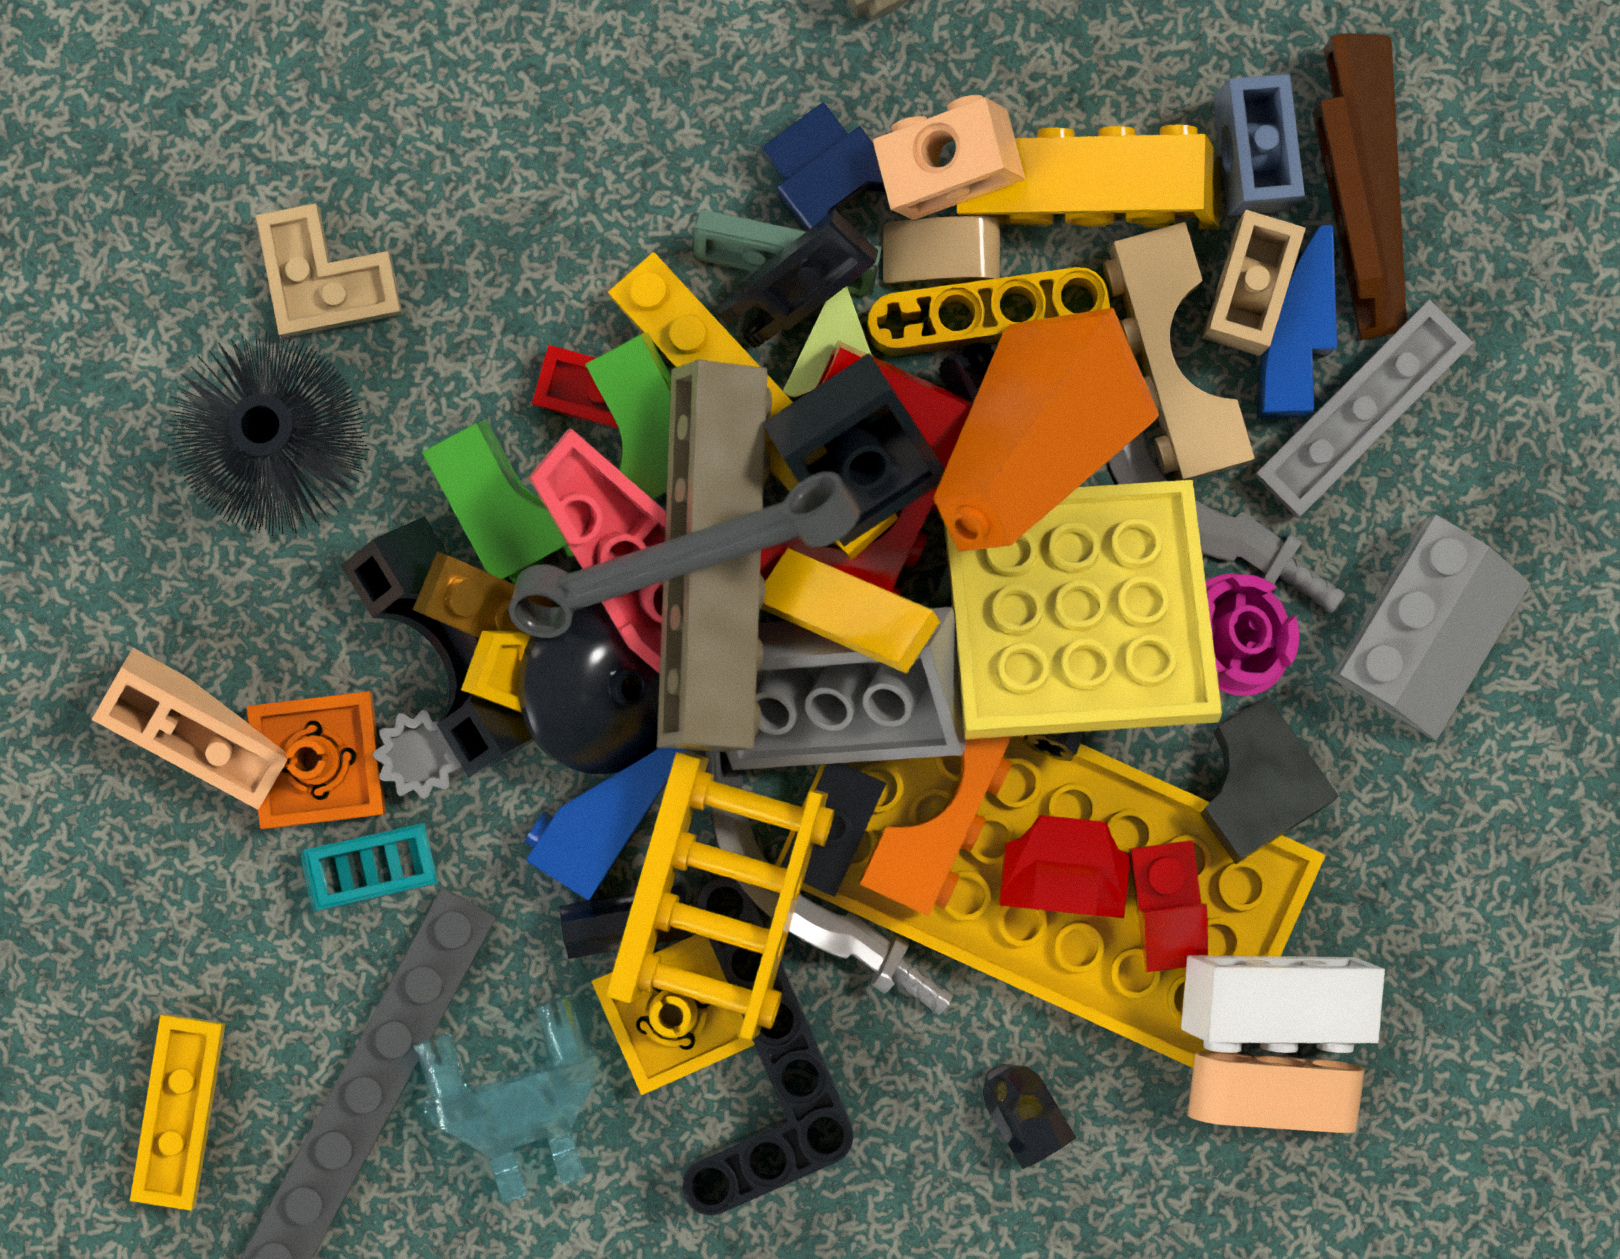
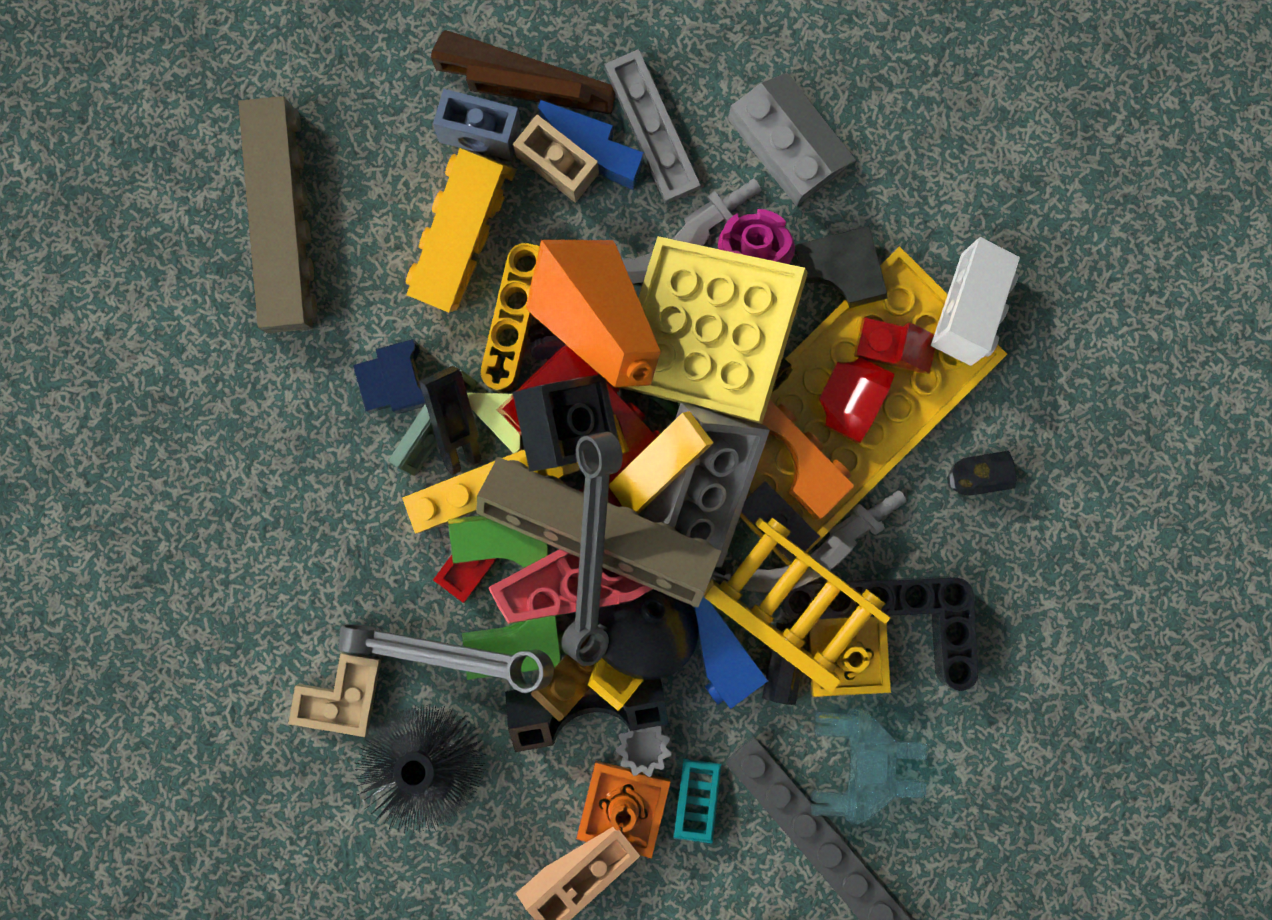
camera: 75 degrees left, 0 degrees up
(425, 291) = (371, 640): none -> piece
(941, 249) = (465, 330): tan panel -> none
(982, 162) = (426, 285): light nougat brick -> none
(1198, 429) = (531, 216): tan arch -> none
(1275, 1092) = (1026, 326): light nougat beam -> none

